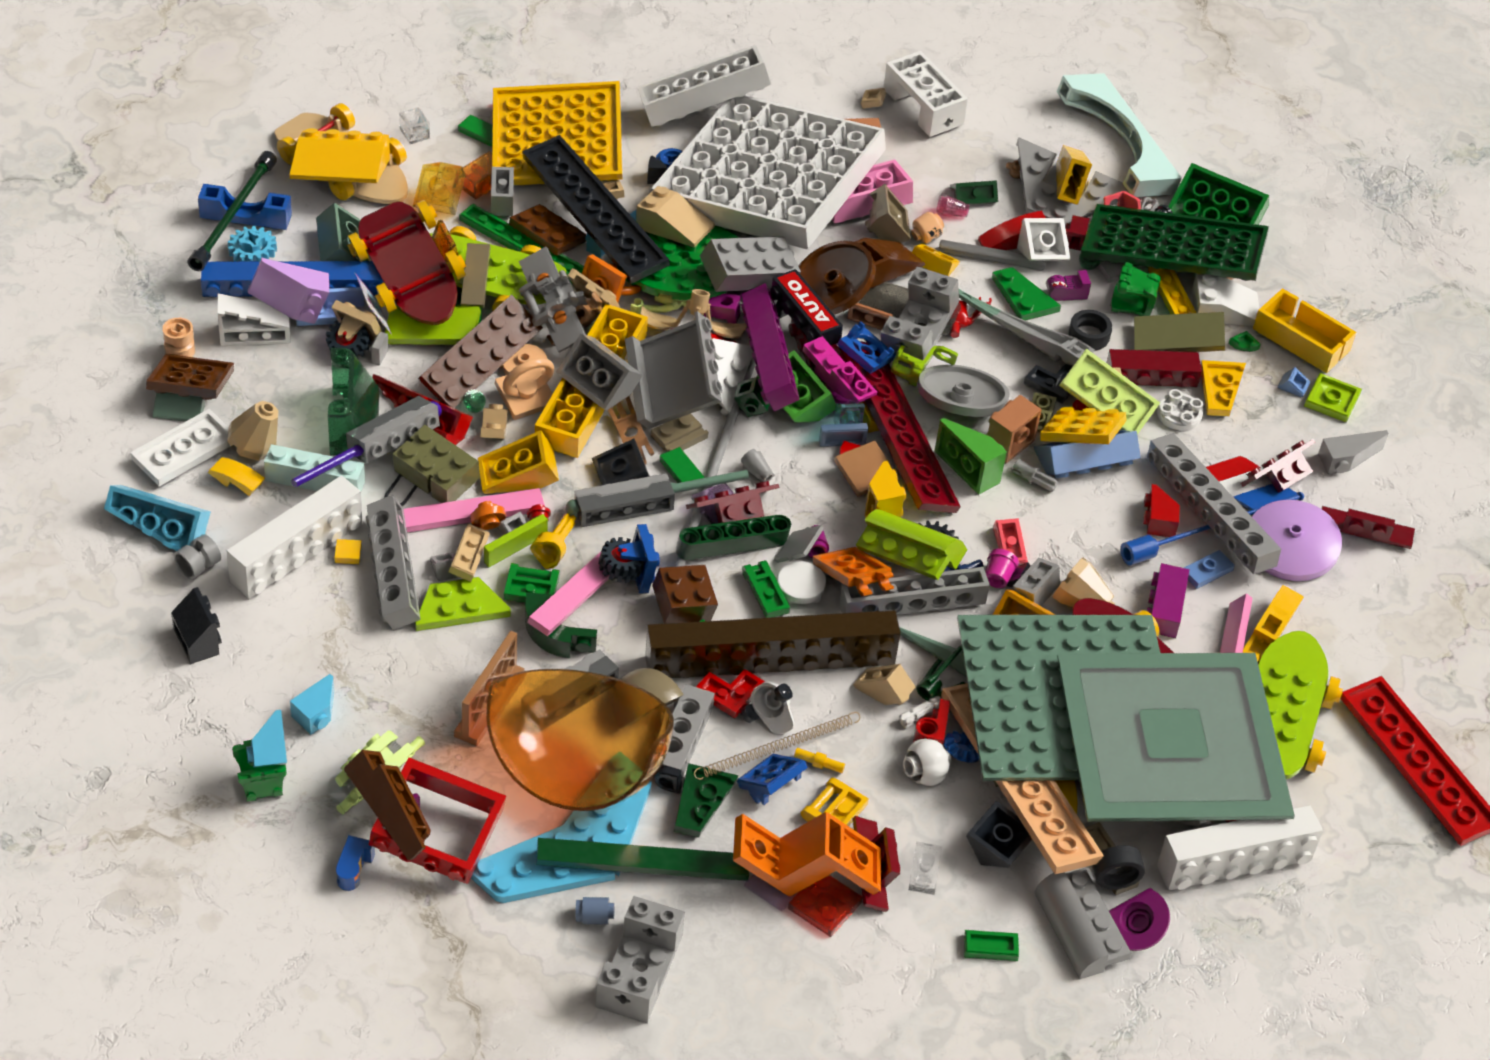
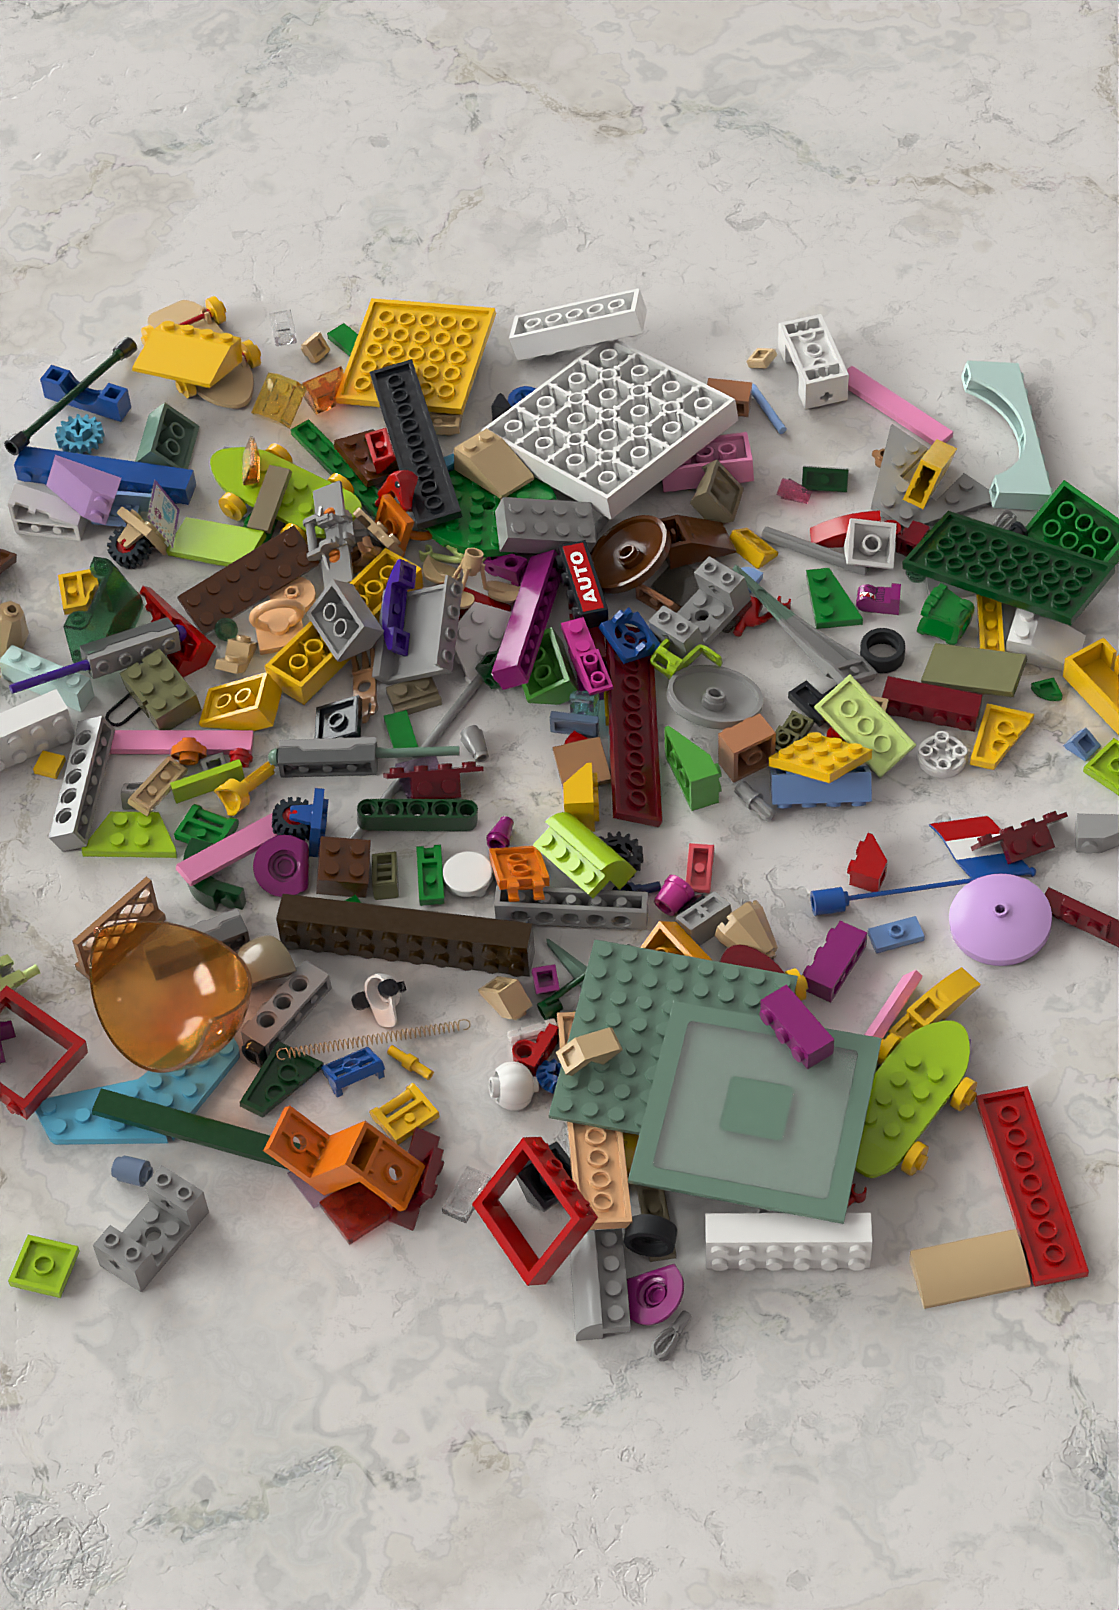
camera: 25 degrees right, 5 degrees up
(310, 386) = (77, 590): none -> yellow wing
(379, 348) = (157, 560): light grey tile -> none
(409, 262) = (210, 475): dark red piece -> none
(452, 139) = (315, 347): none -> tan tile
(502, 191) = (338, 411): light grey brick -> none
(544, 1018) = (44, 1266): none -> lime plate
(563, 218) = (380, 449): none -> red slope
(603, 241) = (399, 484): none -> red animal
(623, 604) = (282, 865): none -> magenta hat
(642, 327) = (394, 605): none -> dark purple slope
(728, 601) = (385, 877): none -> olive slope
(733, 696) = (349, 979): red plate -> none
(799, 544) = (480, 833): light grey piece -> none
(901, 144) = (770, 413): none -> light blue bar
(920, 661) = (545, 979): none -> magenta leg
(927, 227) = (756, 511): light nougat head -> none
(984, 899) = (487, 1204): none -> red window
(991, 945) = (500, 1287): green tile -> none
(999, 710) = (593, 1047): none -> tan slope
(1014, 127) = (897, 407): none -> bright pink tile
(1124, 200) = (980, 511): coral bracket -> none
(1168, 950) = (675, 1329): none -> light grey piece
(1182, 654) = (796, 1027): none -> magenta brick
(1214, 503) = (925, 865): light grey brick -> none
(1399, 842) = (969, 1268): none -> tan slope

